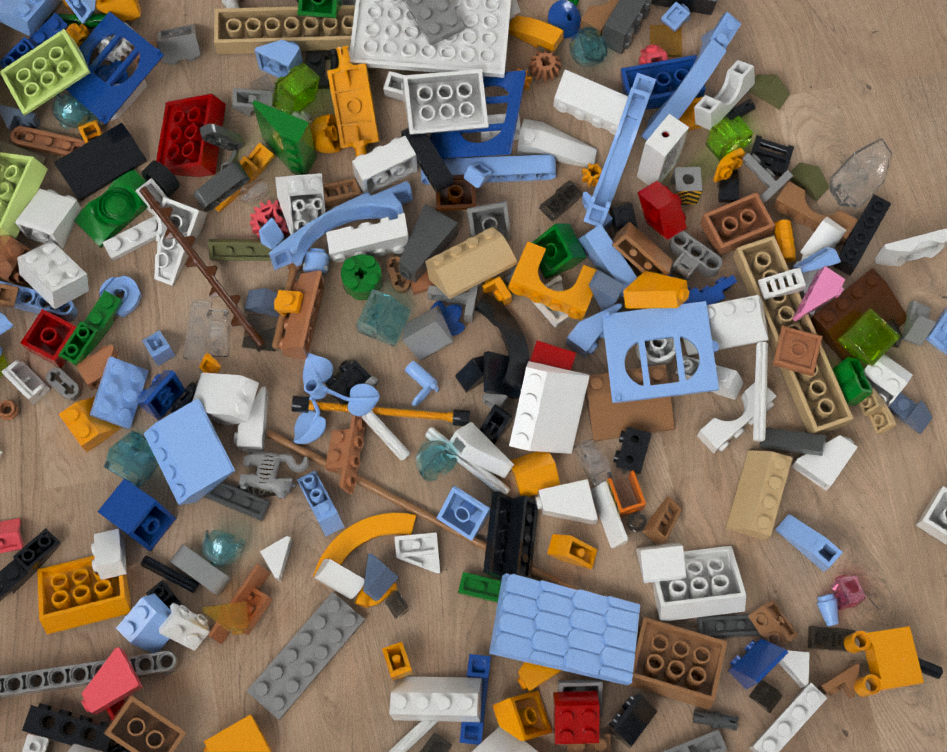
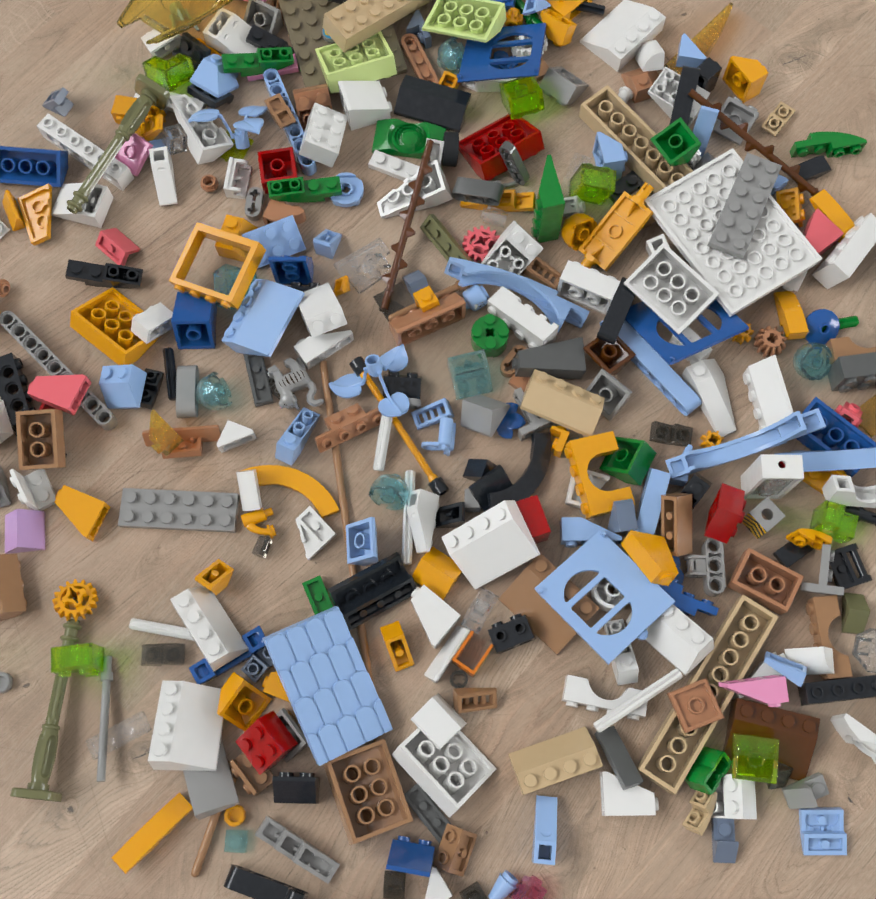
camera: 55 degrees right, 0 degrees up
(120, 409) = (244, 278): none -> light orange window
(163, 85) = (522, 97): none -> clear neon green brick
(185, 627) = (136, 410): white bracket -> none
(244, 98) = (563, 164): light grey slope -> none
(270, 234) = (468, 249): light blue slope -> none
(377, 578) = (269, 516): sand blue slope -> none
(391, 358) = (436, 405): none -> light blue slope
(477, 174) = (637, 356): light blue slope -> none
(500, 677) = (258, 665): none -> sand blue slope
(715, 719) = (345, 856): dark grey pin -> none
(784, 237) = (784, 630): light orange axle -> none
(796, 273) = (751, 668): white slope -> none

